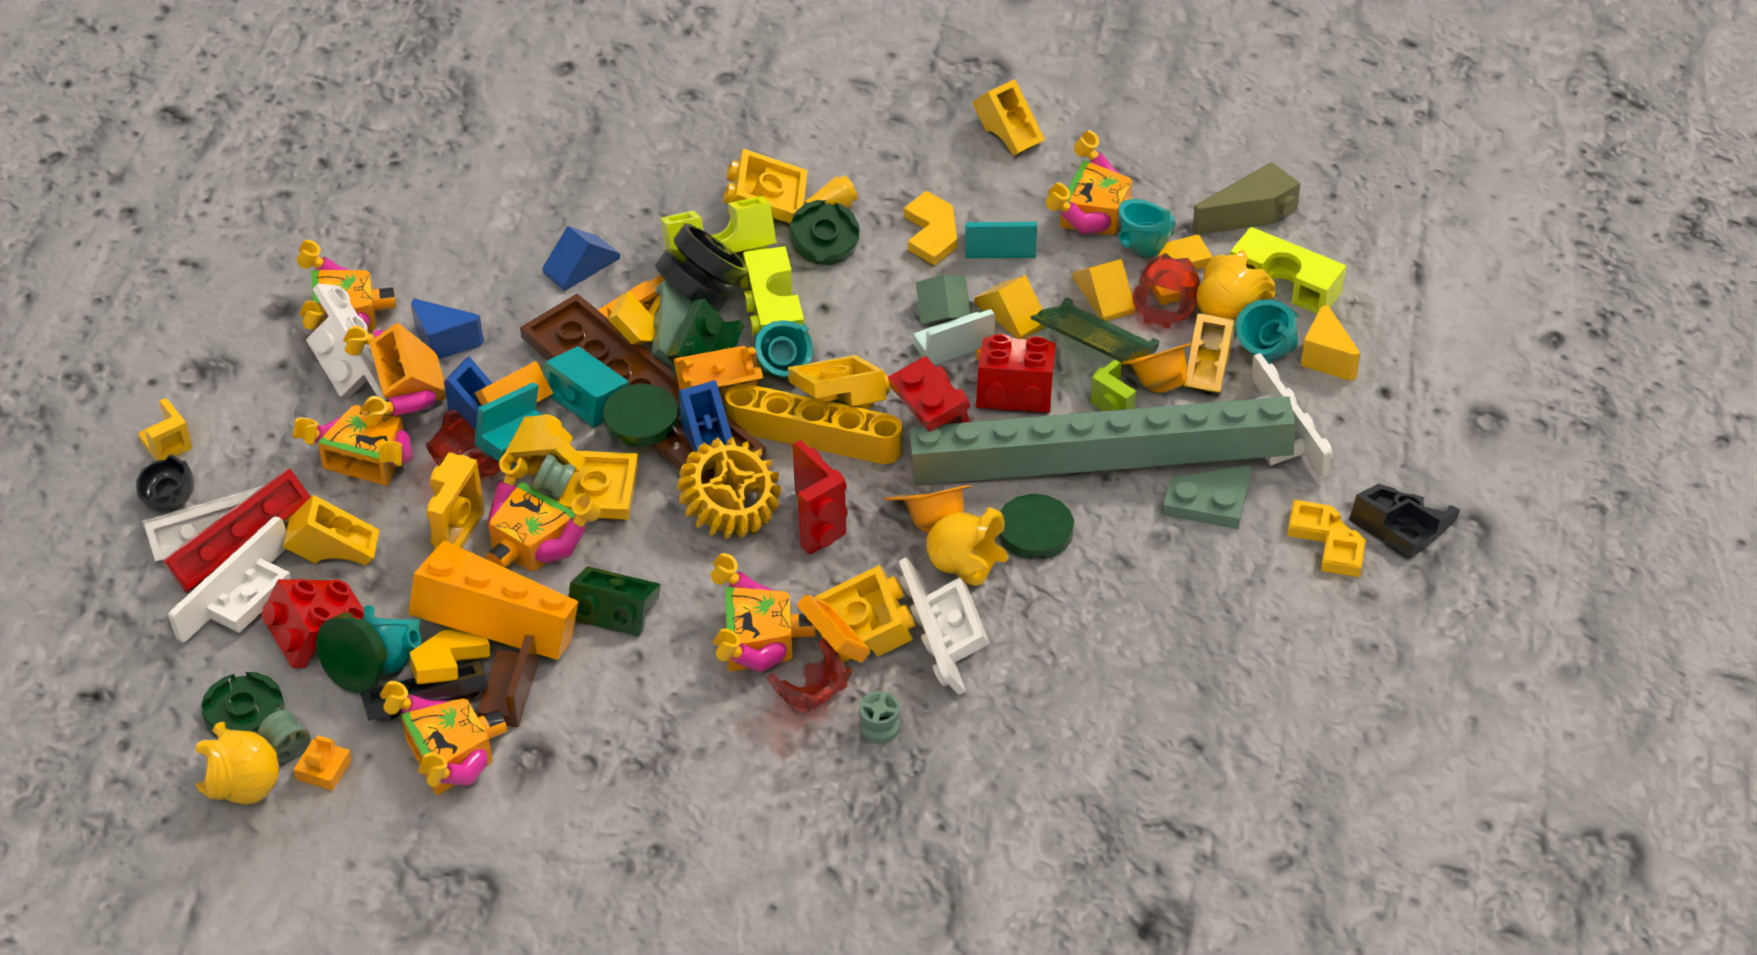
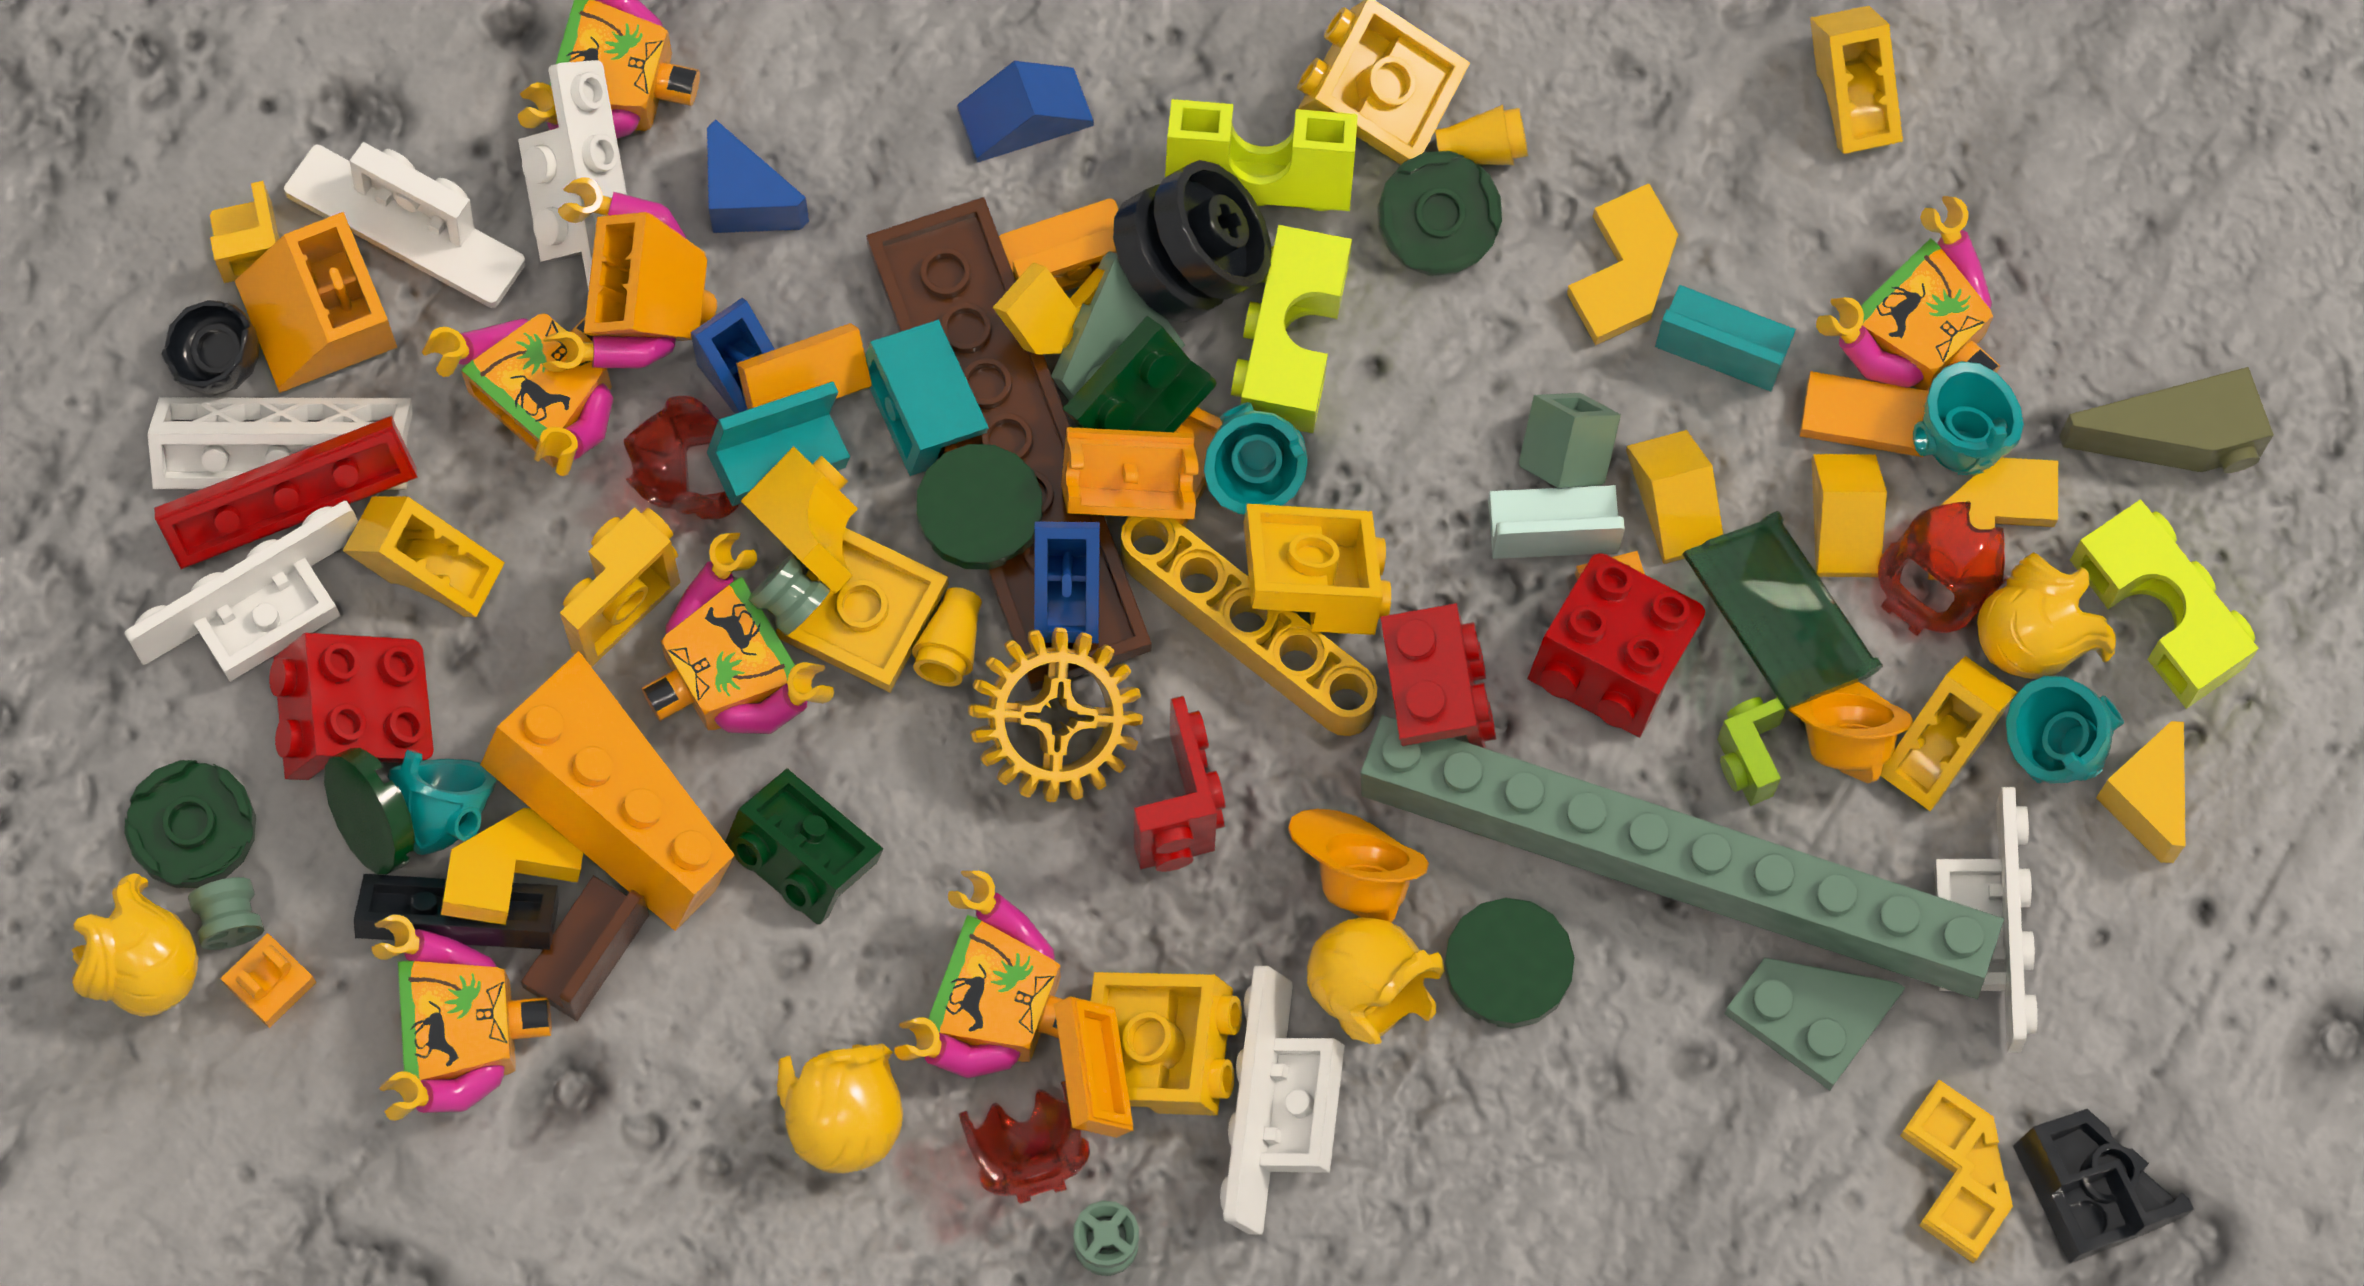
camera: 20 degrees right, 25 degrees up
(221, 443) = (314, 304): none -> light orange slope
(253, 393) = (408, 217): none -> white bracket
(651, 484) = (949, 640): none -> yellow cone
(696, 697) = (842, 1107): none -> yellow hair
(1089, 248) = (1862, 413): none -> light orange tile

